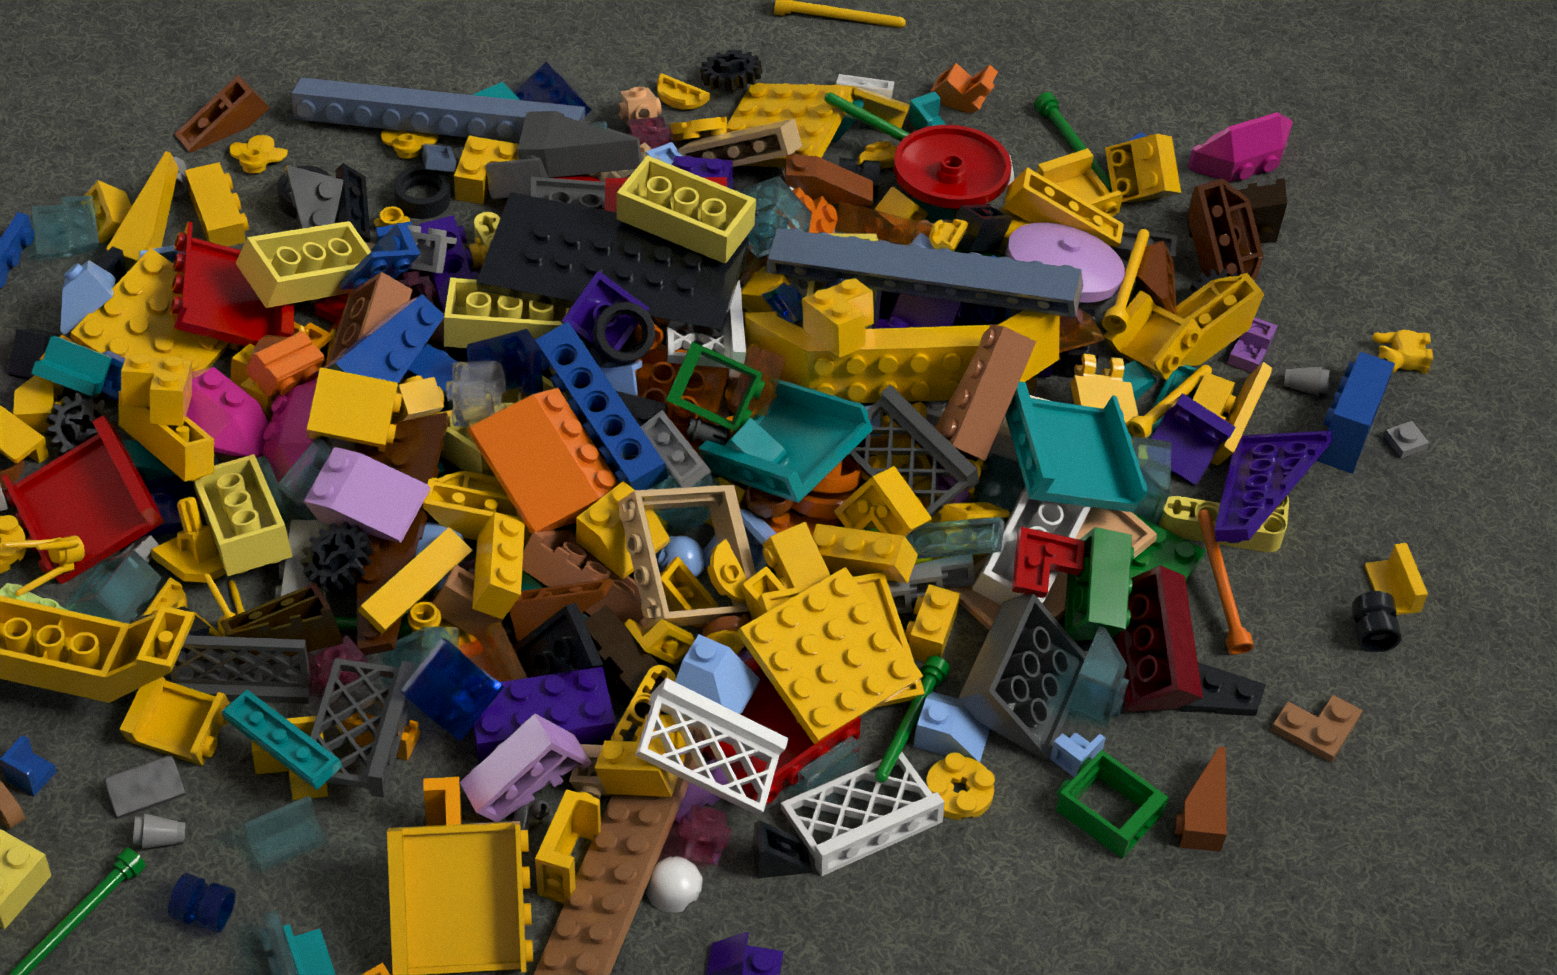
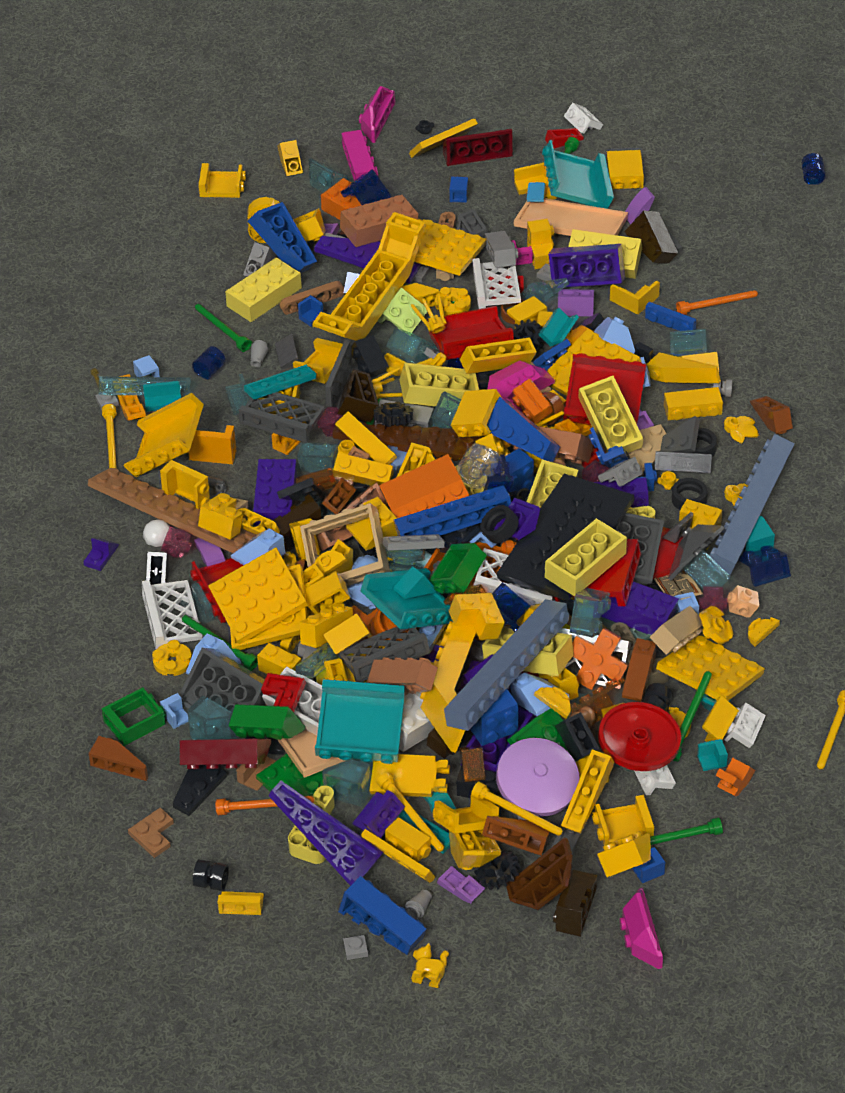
camera: 110 degrees right, 5 degrees down
(158, 384) = (514, 345): yellow brick -> none
(365, 494) = (423, 419): lavender slope -> none
(438, 157) = (712, 498): sand blue tile -> none
(451, 689) = (291, 445): clear blue bracket -> none
(521, 766) = (238, 474): lavender wedge -> none
(717, 725) = (227, 536): white fence -> none
(731, 70) = (774, 655): black gear -> none

